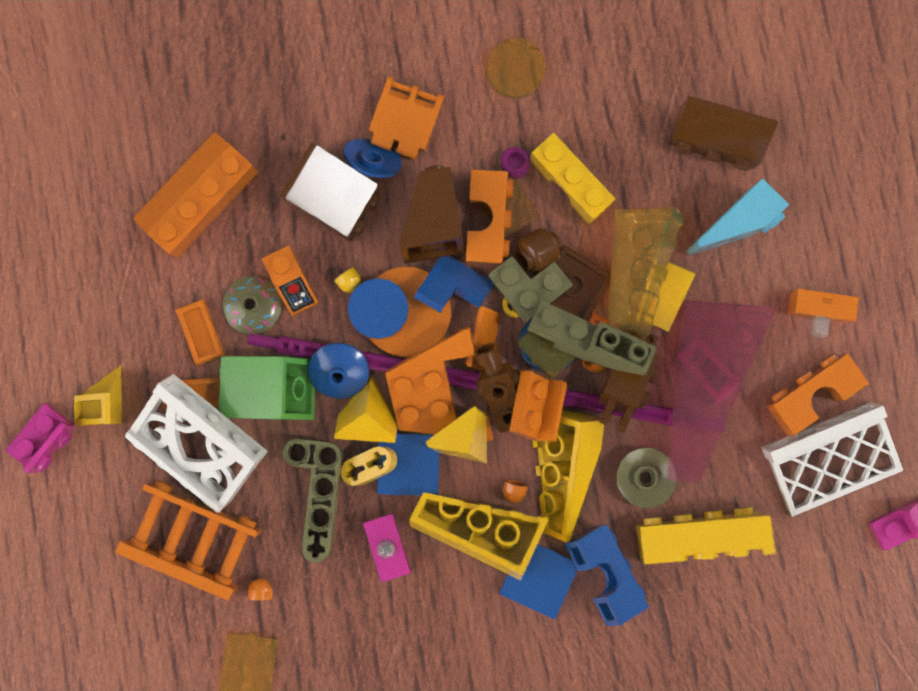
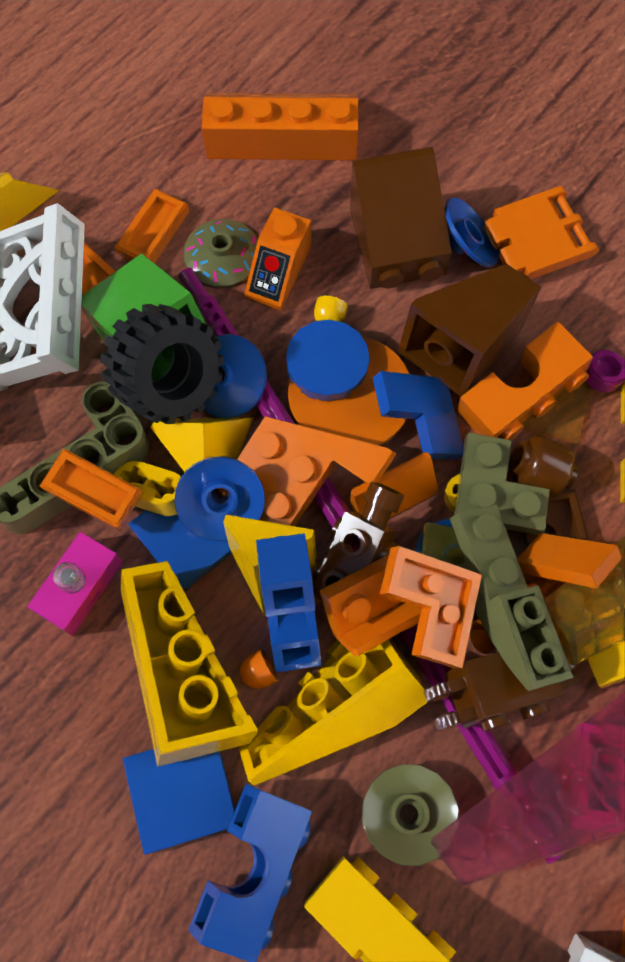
camera: 50 degrees right, 15 degrees down
(312, 406) = (137, 346): none -> black tyre
(347, 499) = (91, 489): none -> orange tile
(407, 437) = (205, 513): none -> blue dish
(501, 450) = (289, 601): none -> blue arch
(567, 373) = (446, 600): none -> orange plate
(599, 292) = (569, 559): none -> orange tile

